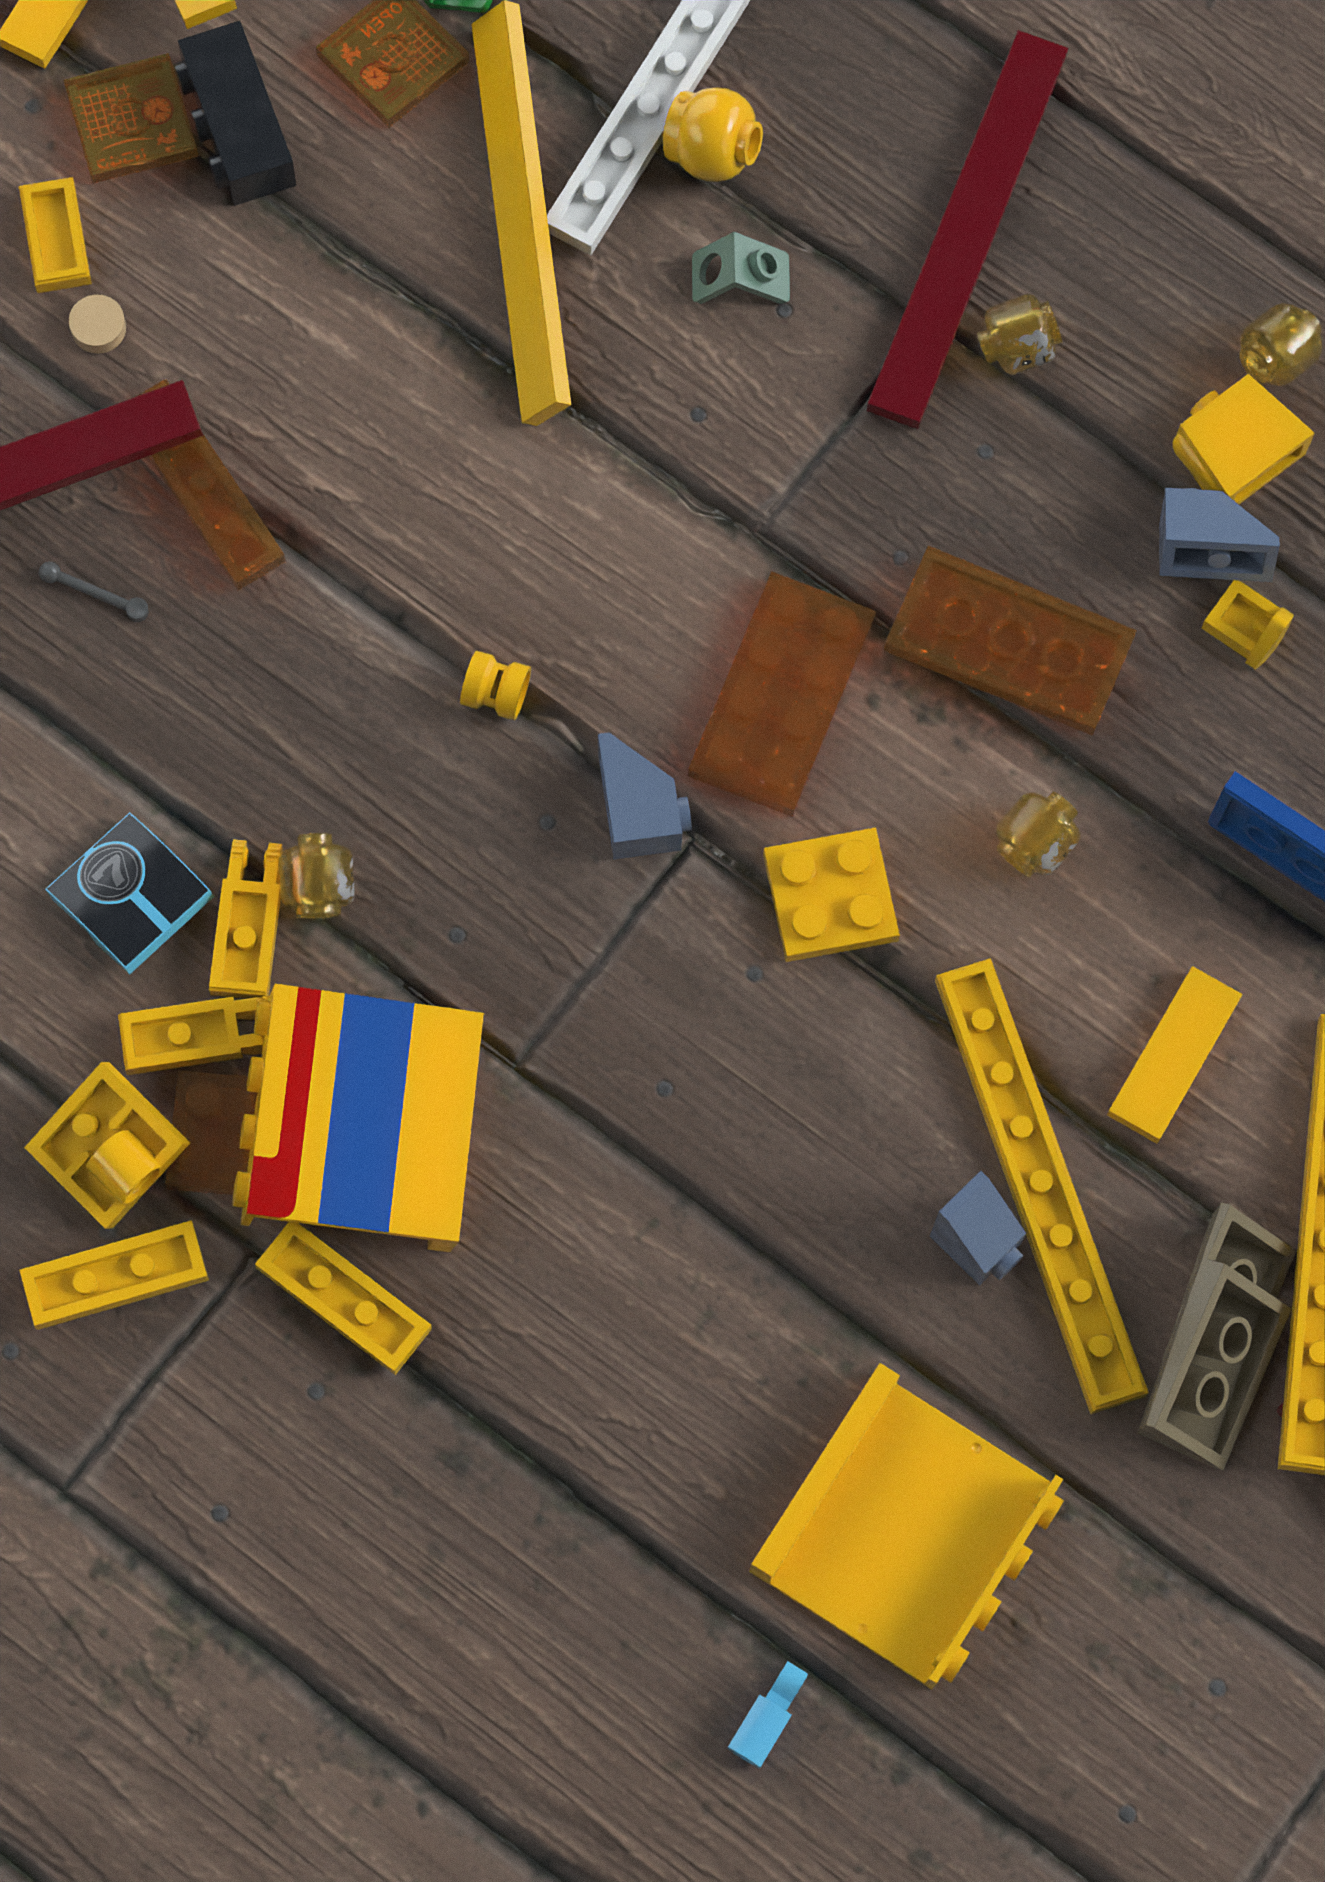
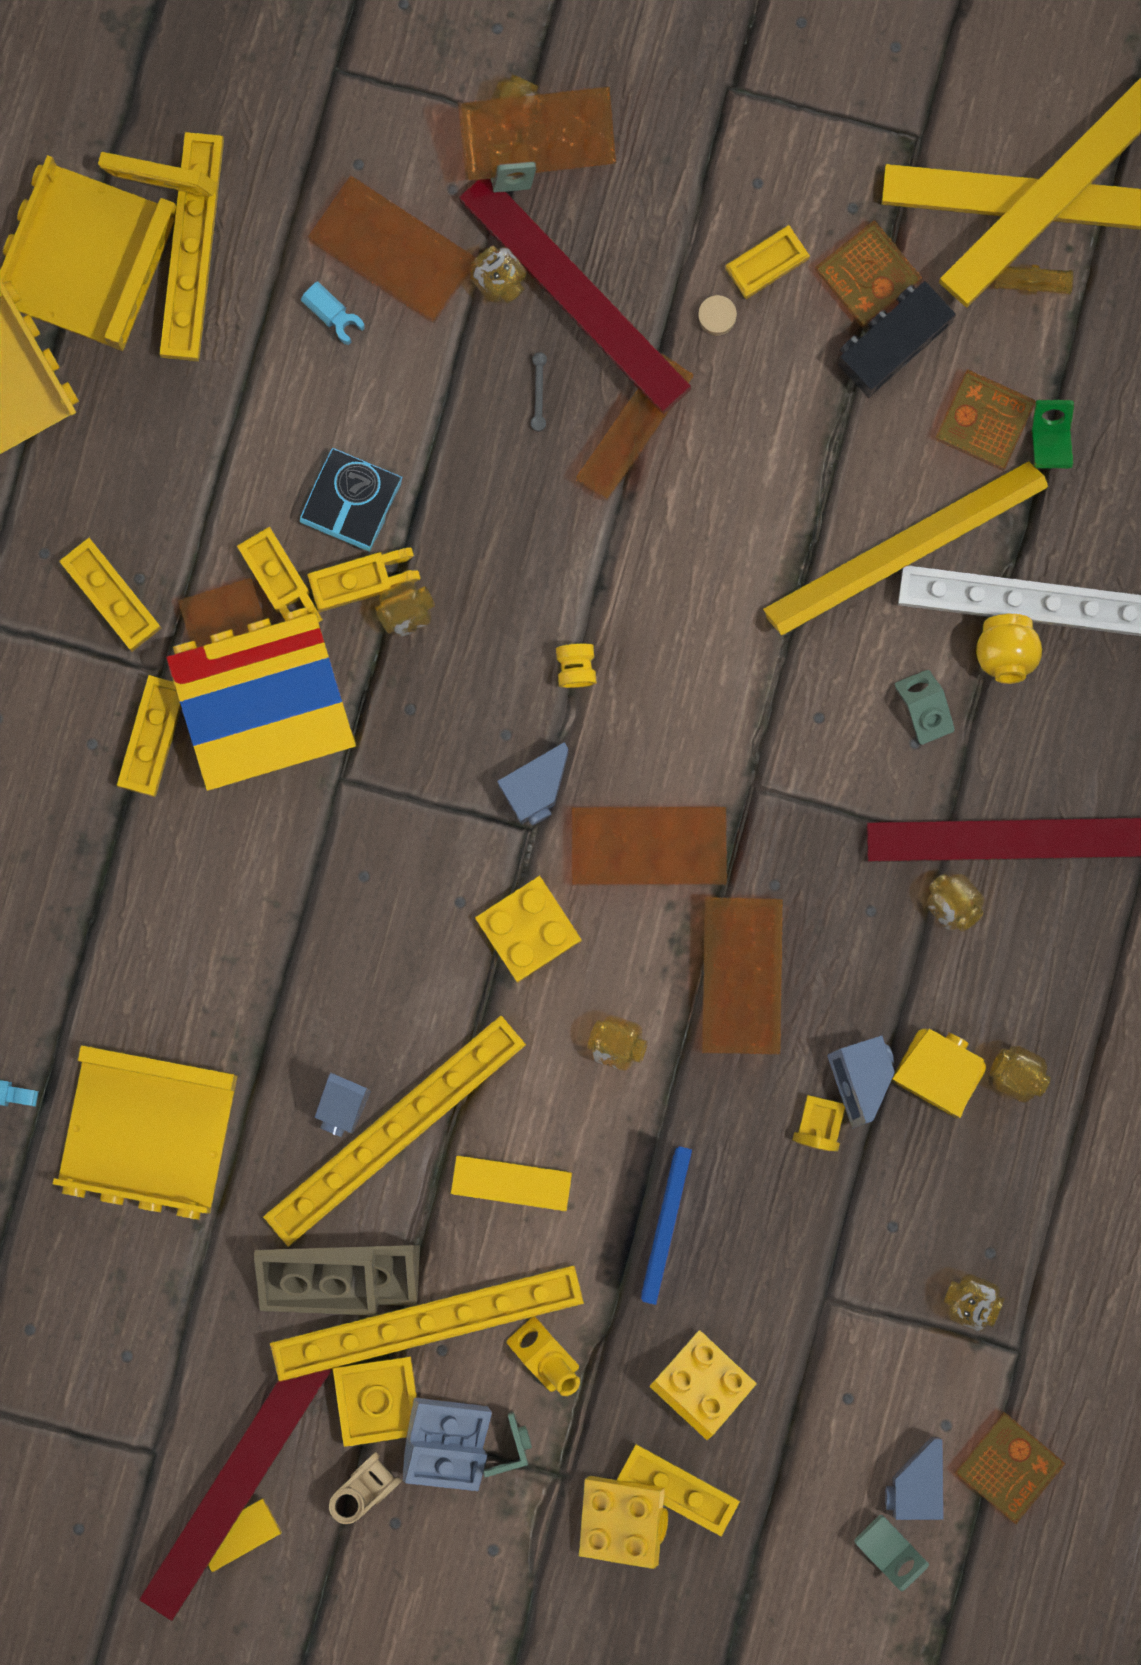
camera: 75 degrees right, 10 degrees up
(107, 1145) = (185, 555): yellow plate -> none

